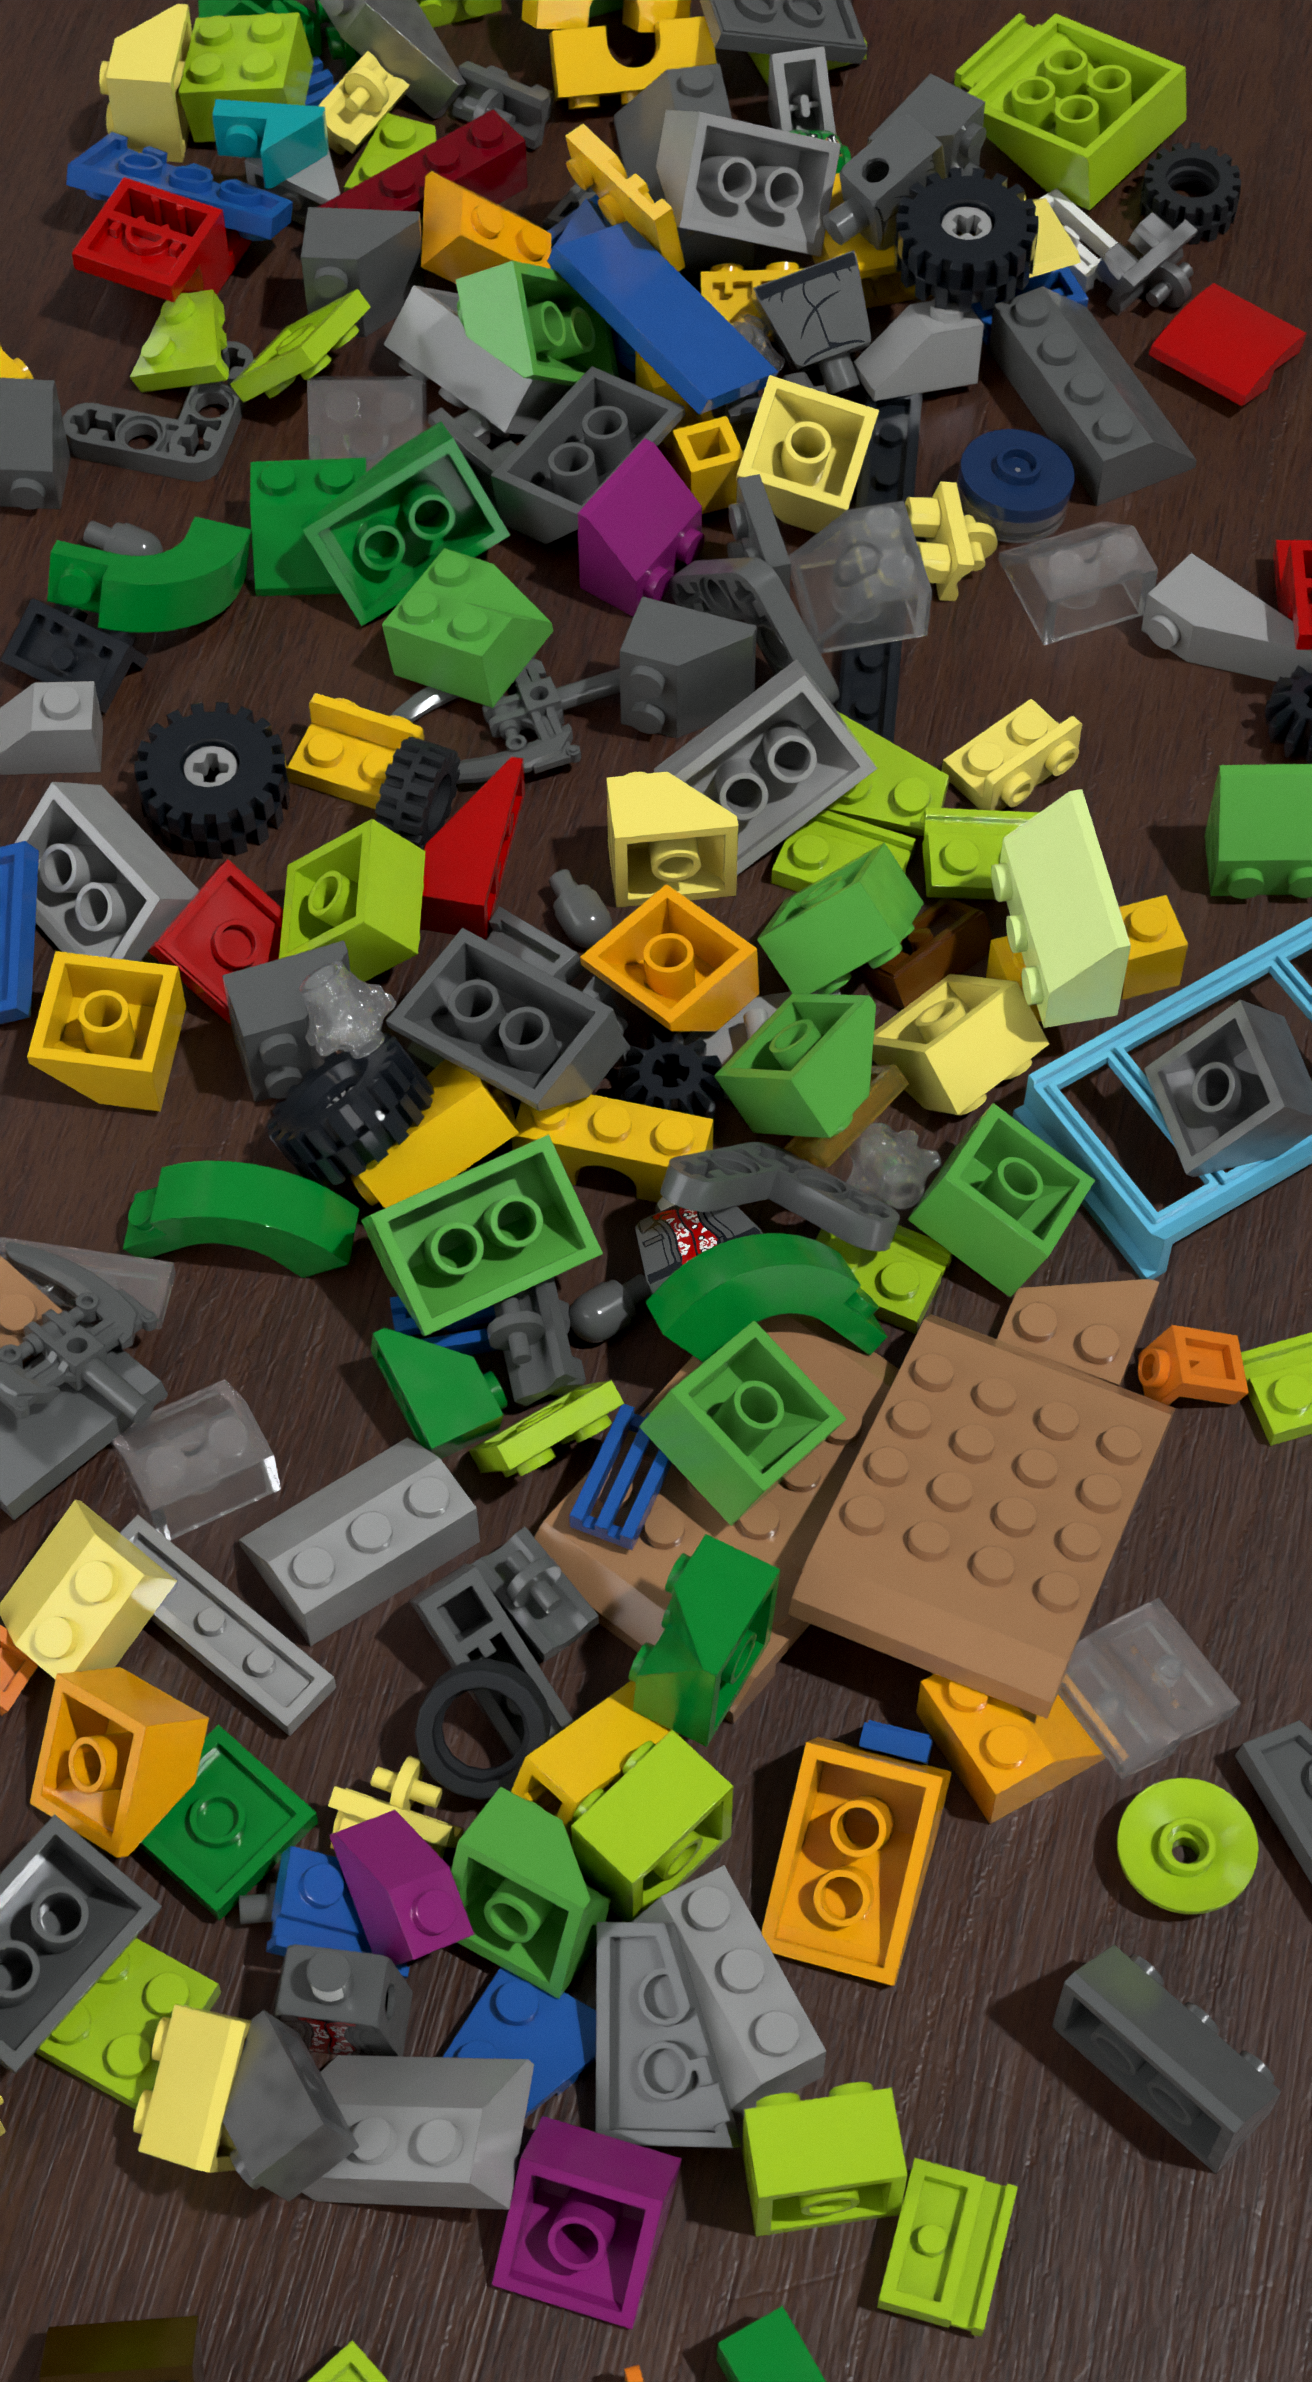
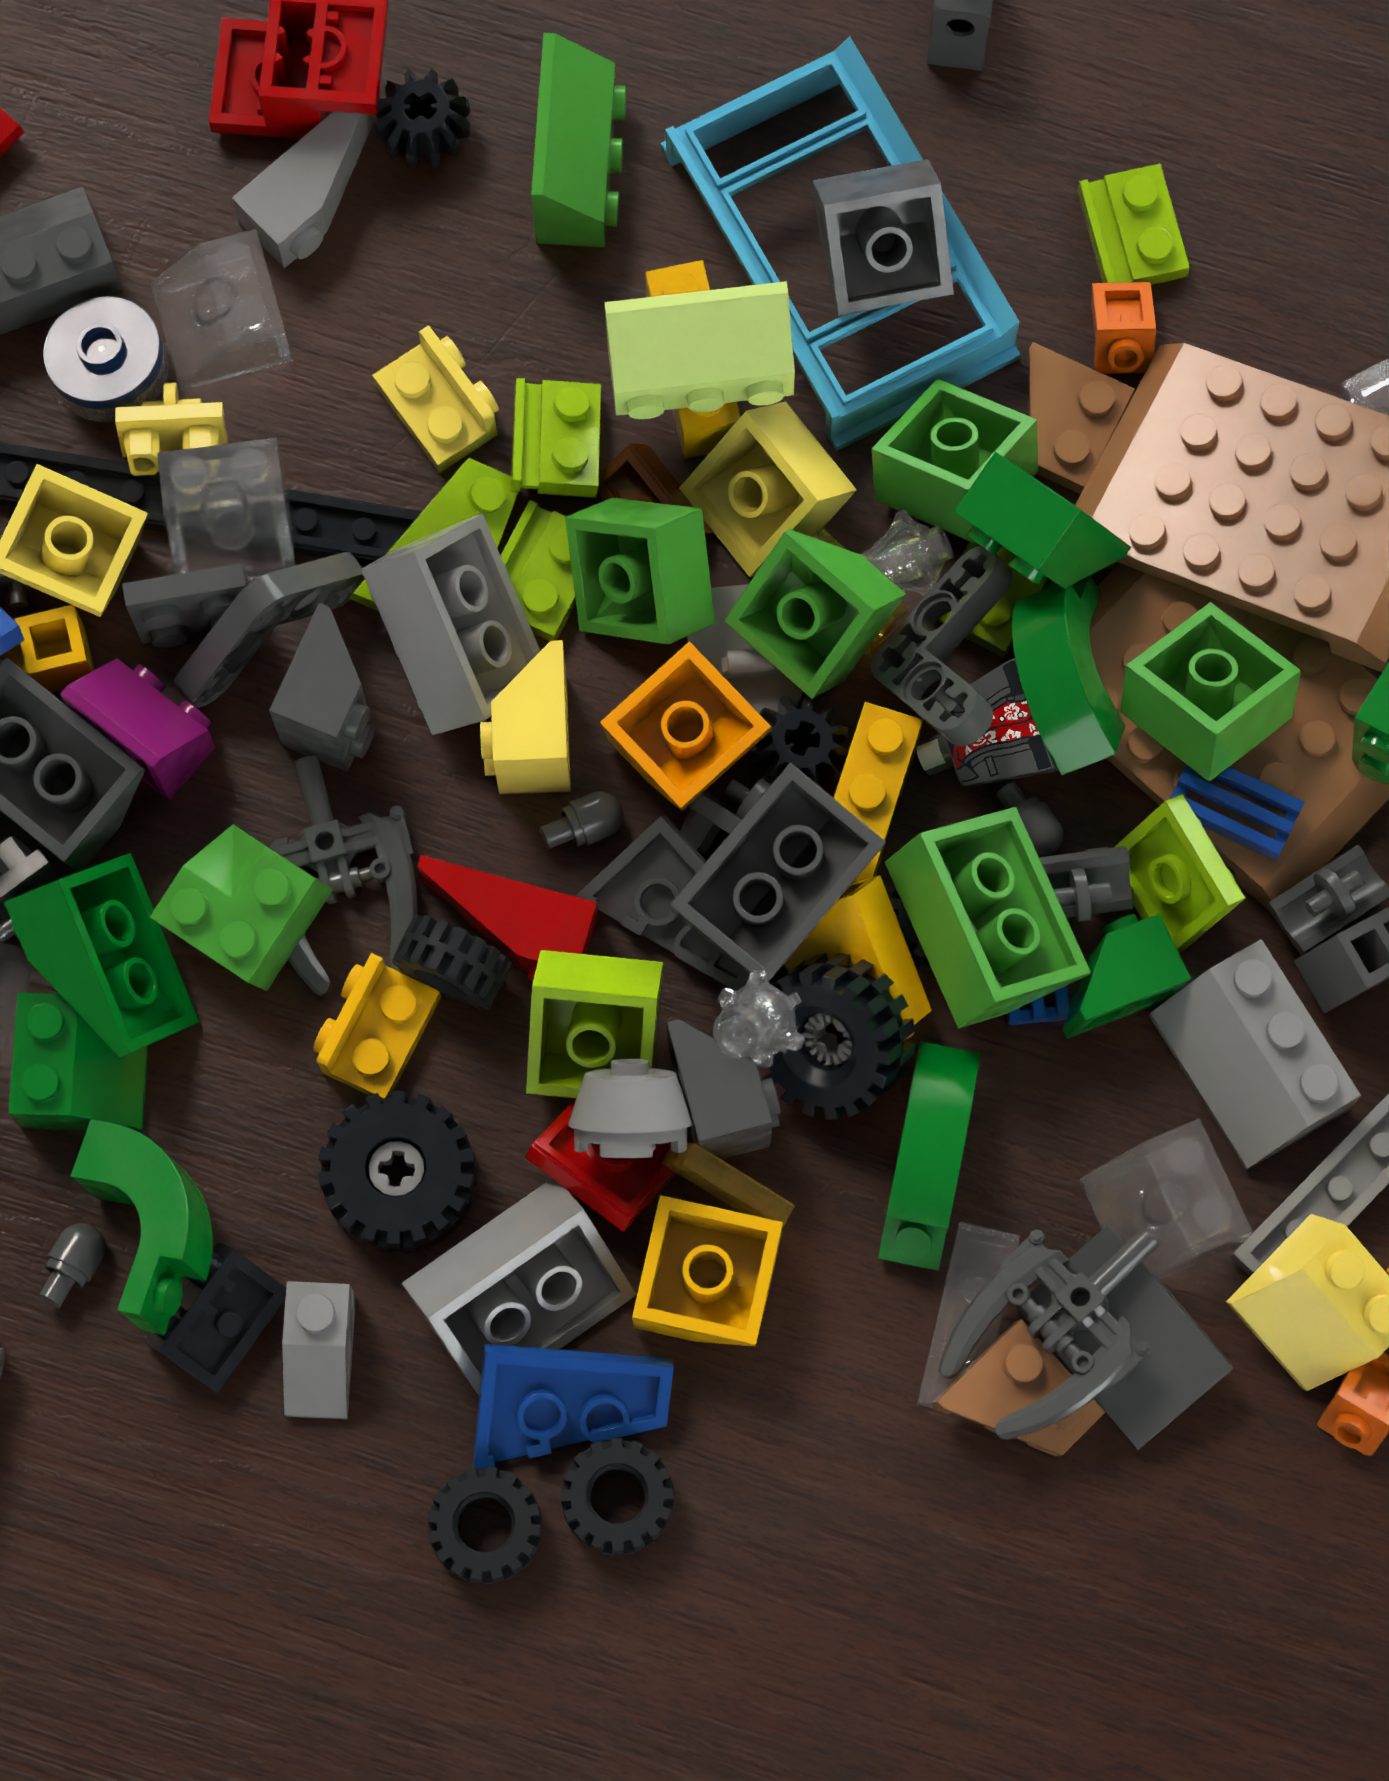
camera: 85 degrees left, 15 degrees up
(197, 1043) = (728, 1183): none -> clear yellow tile
(252, 916) = (630, 1110): none -> light grey cone
(918, 1252) = (1036, 525): none -> green slope

